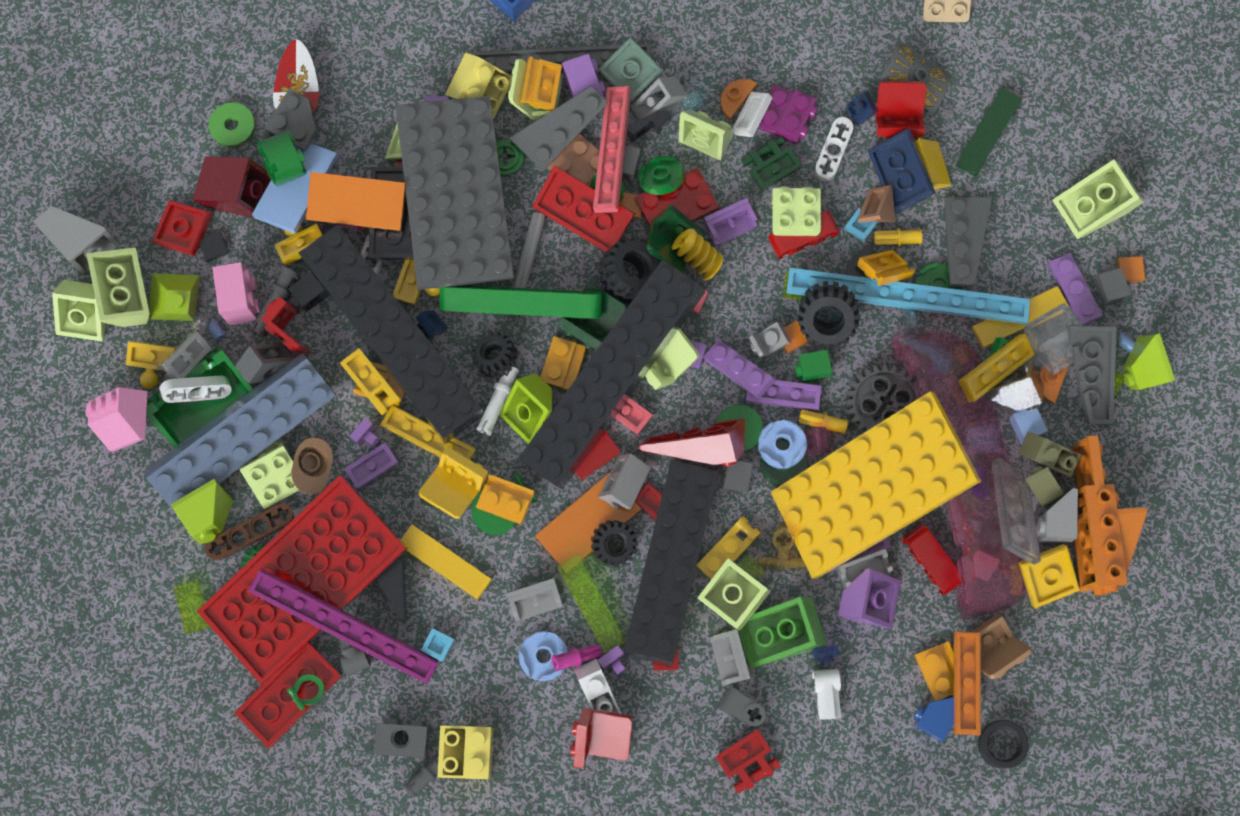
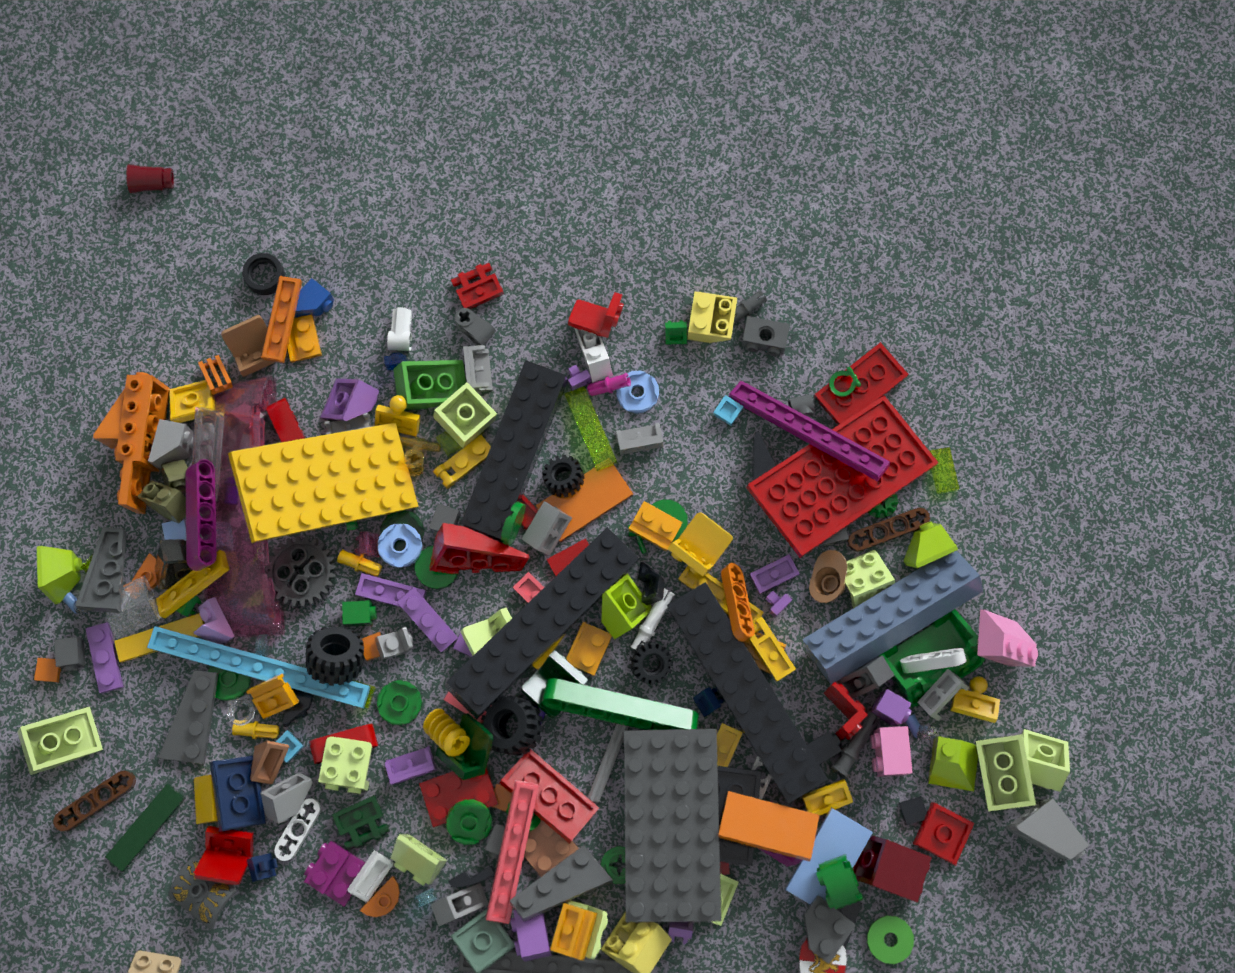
camera: 175 degrees left, 0 degrees up
(237, 335) = (891, 708): none -> medium lavender brick
(407, 425) = (733, 581): none -> orange beam
(445, 562) = (715, 482): yellow tile -> none
(501, 437) = (653, 584): none -> black slope
(505, 731) = (676, 332): none -> green tile
(660, 478) = (513, 523): none -> green tile
(754, 284) = (406, 705): none -> green tile
(811, 589) = (405, 421): none -> yellow plate
(850, 174) = (285, 797): none -> light grey slope
(926, 259) = (247, 700): none -> clear piece
(962, 334) = (216, 626): none -> lavender slope
(1012, 441) = (195, 523): none -> magenta beam
(1040, 626) = (210, 364): none -> orange tile
(1046, 149) = (94, 800): none -> reddish brown beam

